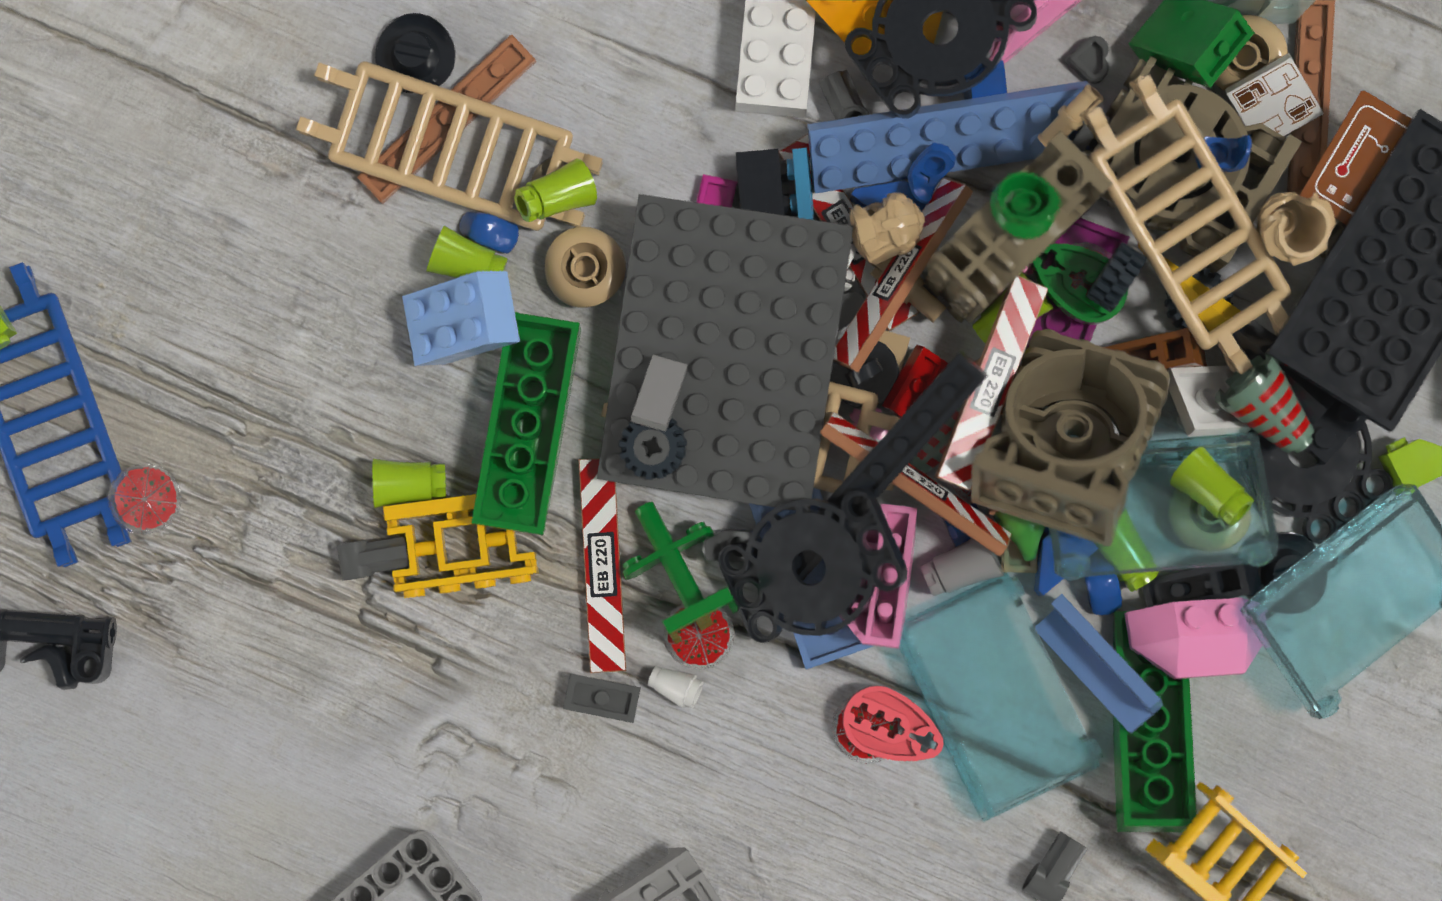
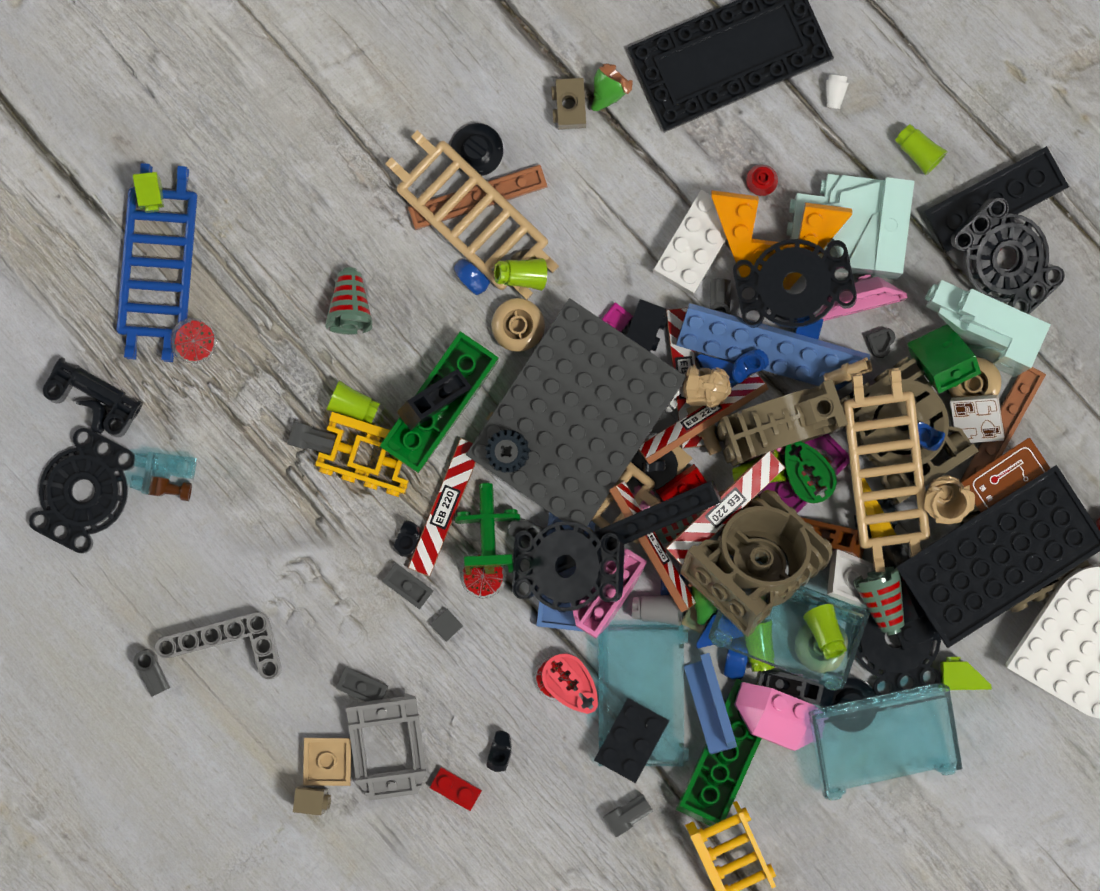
camera: 30 degrees right, 0 degrees up
(52, 786) = (59, 491): none -> black piece
(181, 706) = (158, 472): none -> clear light blue hips
(338, 348) = (349, 304): none -> sand green cone
(459, 256) = (449, 288): lime plant -> none
(461, 318) = (429, 322): light blue brick -> none
(516, 423) = (433, 399): none -> black slope
(571, 633) = (407, 539): none -> black hair
(602, 867) = (361, 686): none -> dark grey plate
(659, 393) = (525, 421): light grey tile -> none
(677, 686) = (455, 600): white cone -> none
(681, 726) = (446, 625): none -> dark grey tile
(799, 170) = (673, 328): dark azure plate -> none
(838, 868) = (500, 752): none -> black hair
(1013, 766) = (631, 740): none -> black plate
(1025, 205) = (789, 413): green piece -> none
(1116, 277) = (828, 480): black wheel -> none

